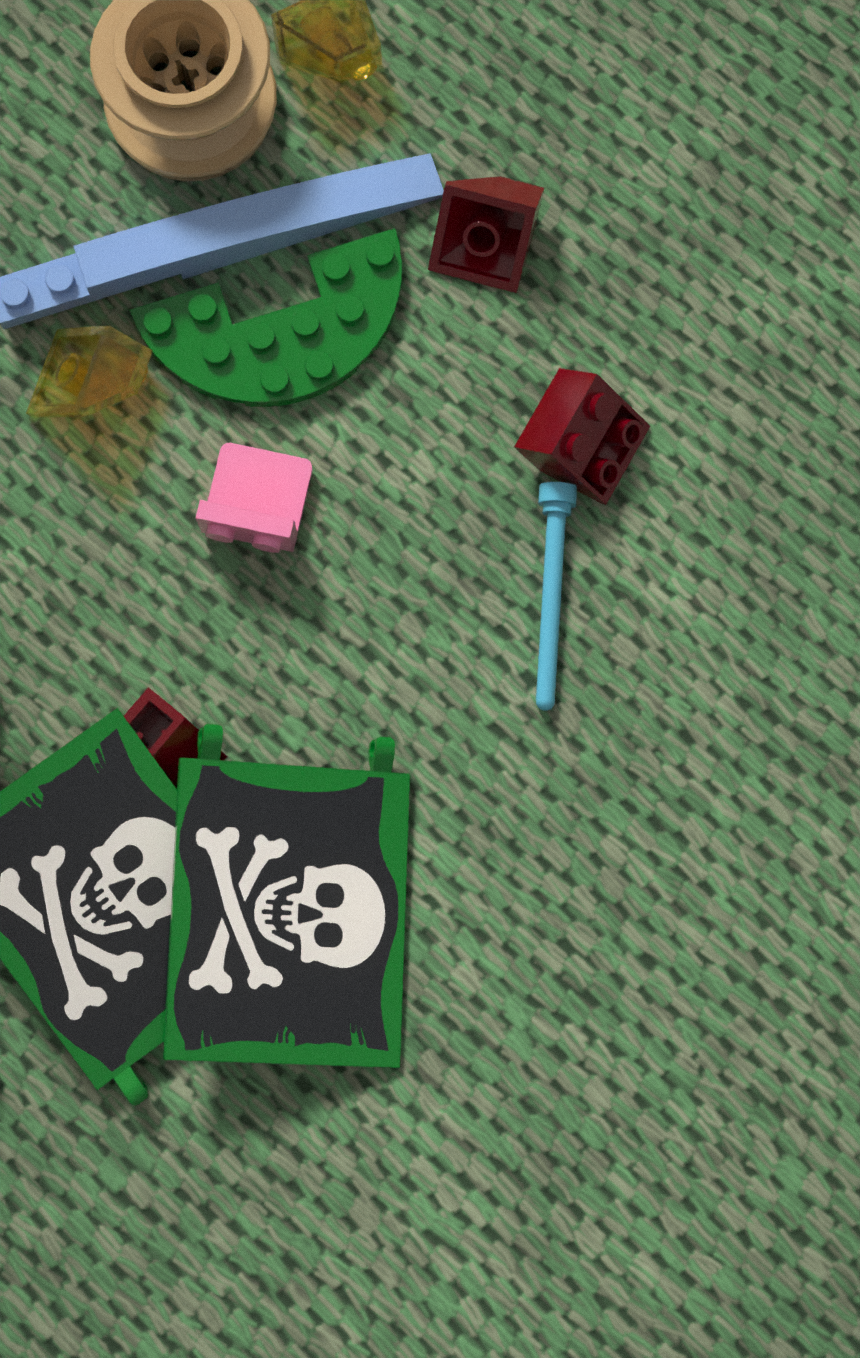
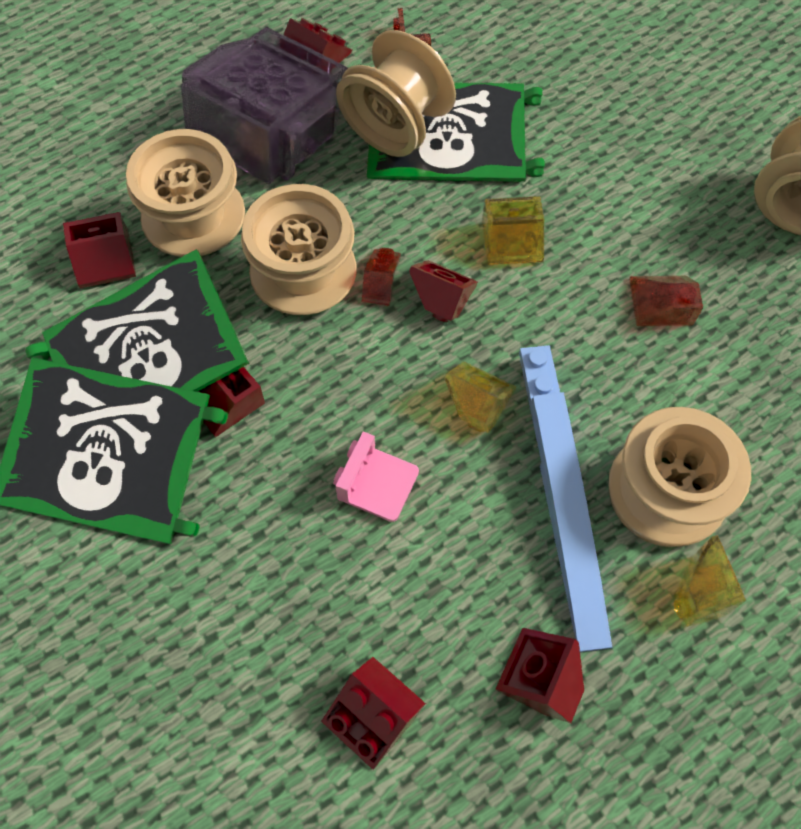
camera: 100 degrees right, 15 degrees down
(287, 351) = (478, 529): green plate -> none
(557, 501) = (326, 682): medium azure piece -> none

